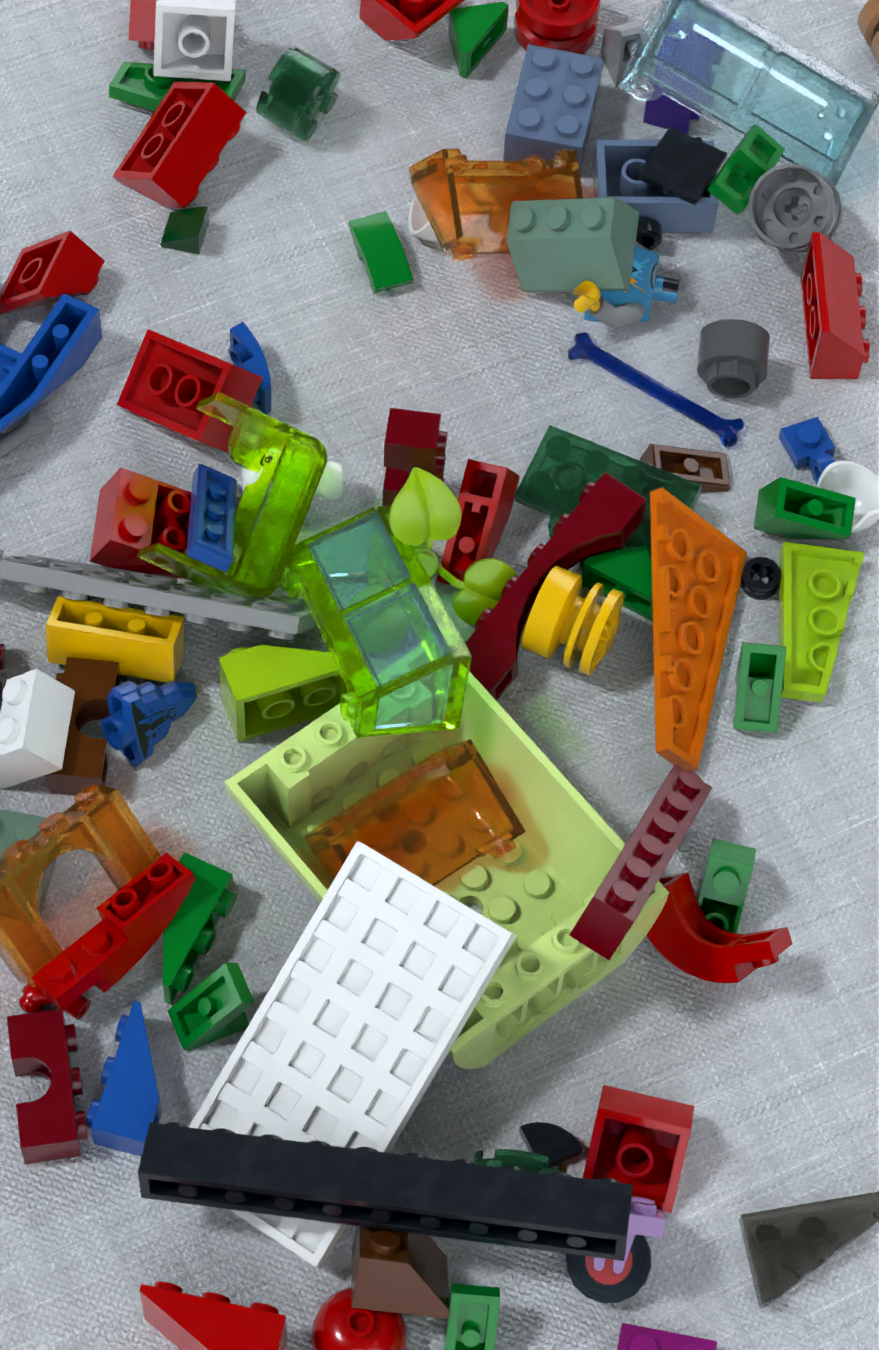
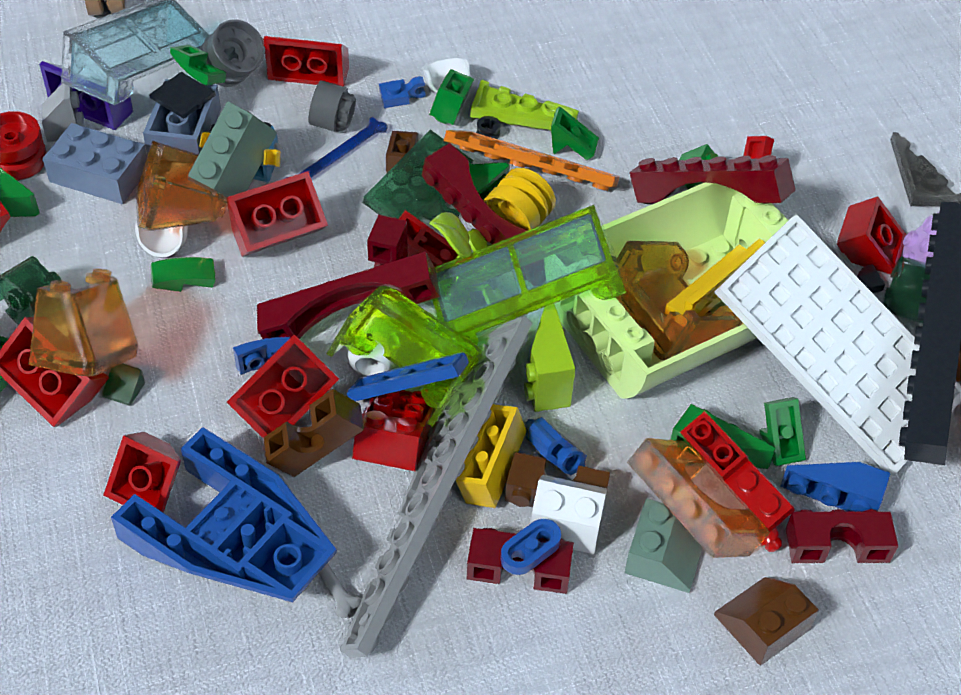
camera: 80 degrees left, 10 degrees down
(103, 427) = (334, 422): none -> reddish brown arch
(209, 155) = (82, 327): none -> clear orange windscreen
(352, 472) = (303, 309): none -> dark red arch
(462, 885) = (700, 294): none -> yellow fence
(481, 325) = (275, 213): none -> red slope

